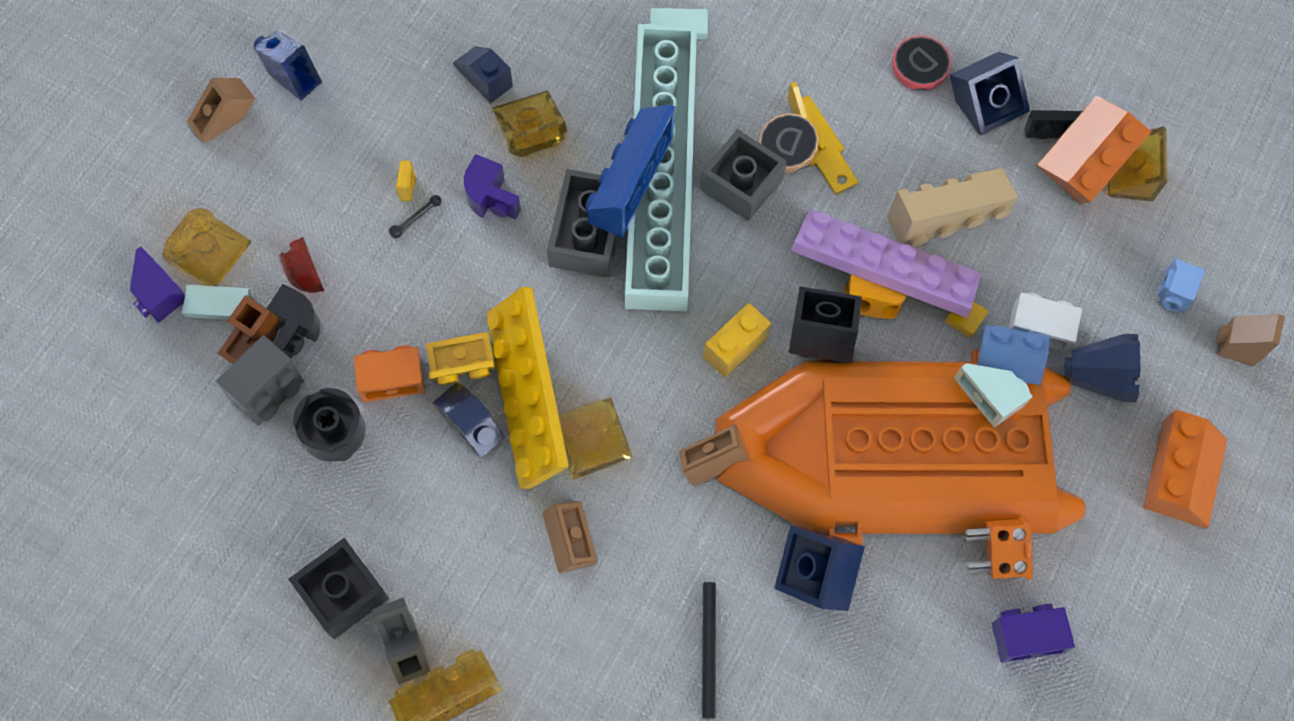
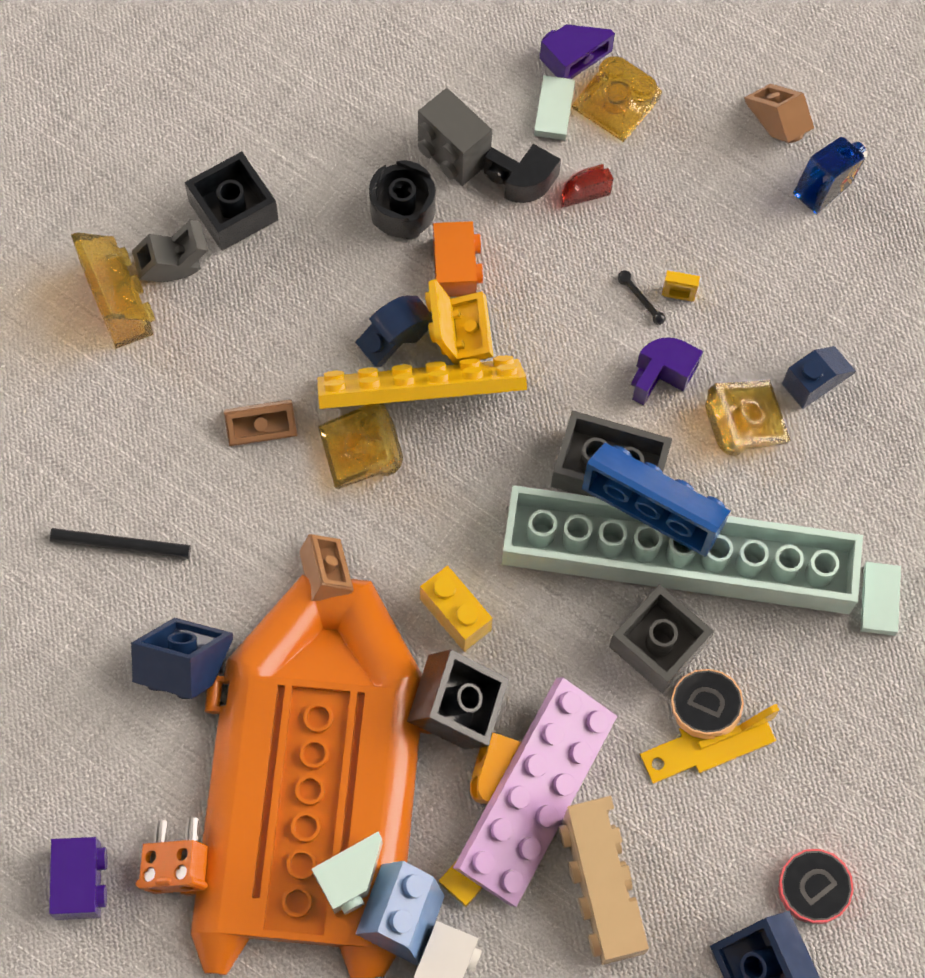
camera: 95 degrees right, 0 degrees up
(250, 324) = (513, 129): dark orange brick -> none

